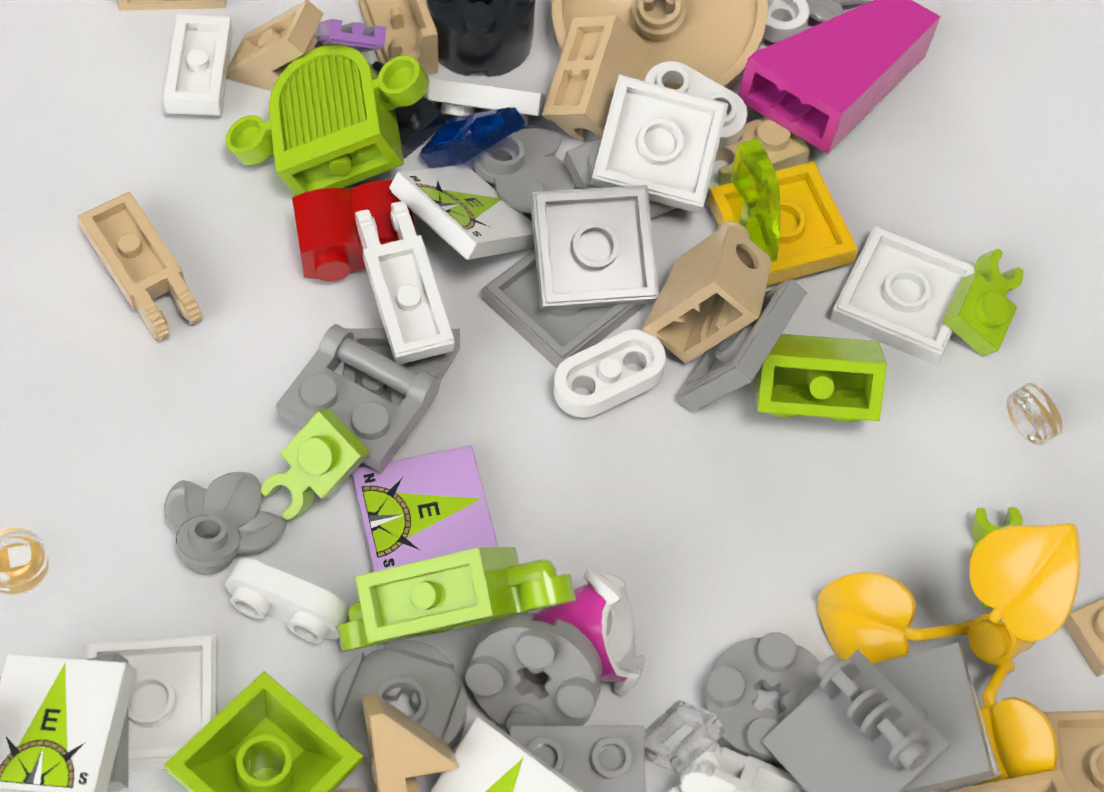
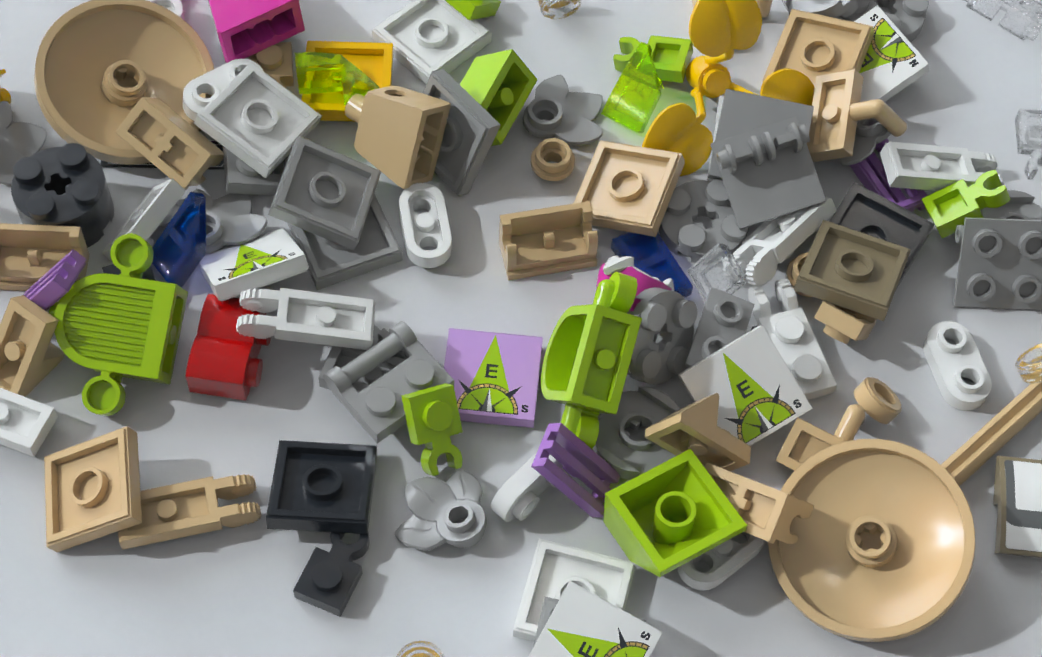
camera: 70 degrees left, 0 degrees up
(107, 429) = (332, 575): none -> black plate
(132, 169) = (92, 489): none -> tan tile
(209, 384) = (322, 487): none -> black tile
(304, 687) = (579, 462): none -> medium lavender tile
(644, 515) = (548, 240): none -> tan hinge
(677, 650) = (653, 258): none -> clear blue tile
(767, 583) = (630, 186): none -> tan tile
(781, 472) = (552, 150): none -> tan plate
(864, 486) = (568, 113): none -> light grey plate
(929, 547) = (635, 91): none -> clear neon green slope

